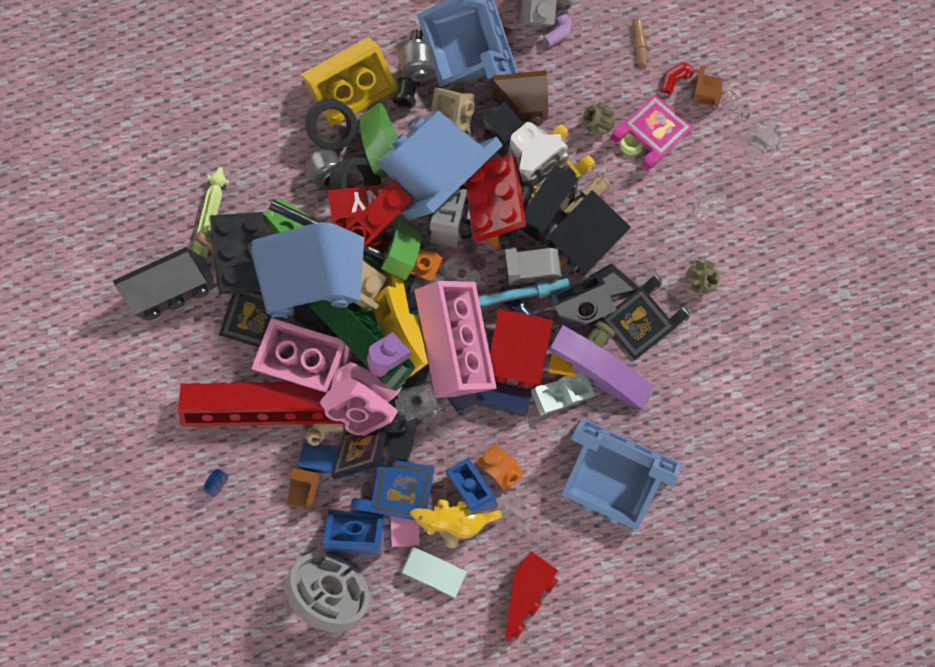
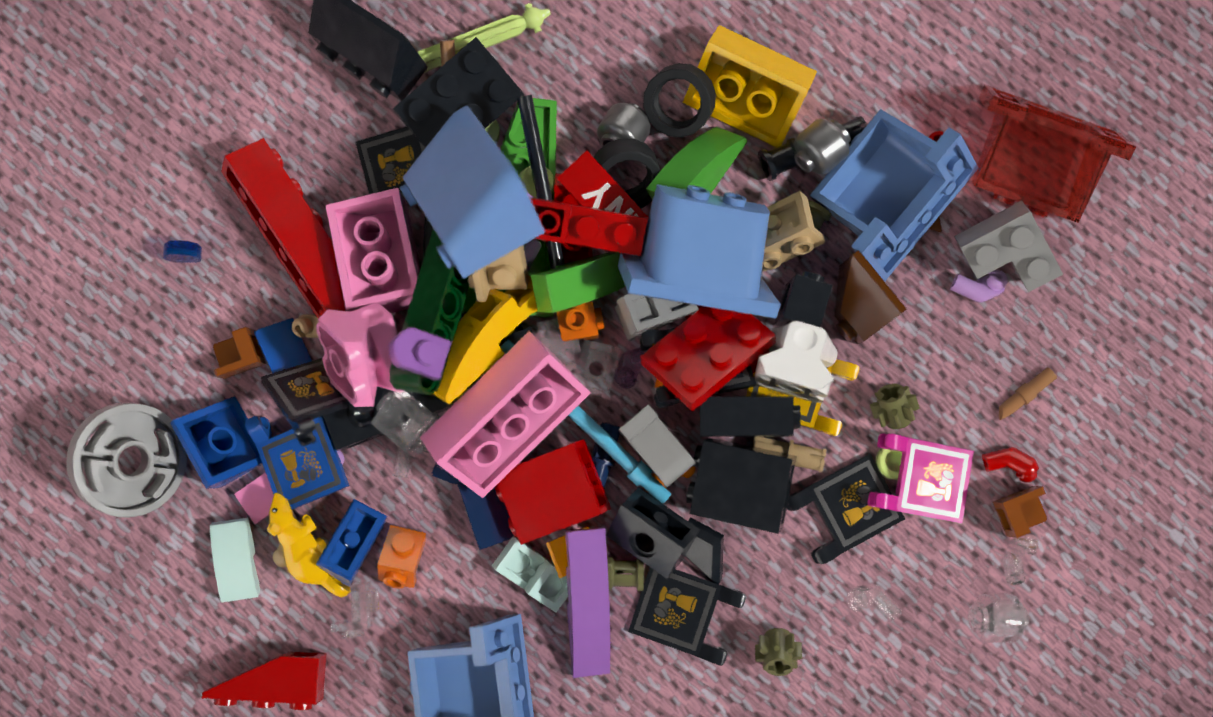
camera: 55 degrees right, 10 degrees up
(641, 187) = (844, 507): none -> black flag

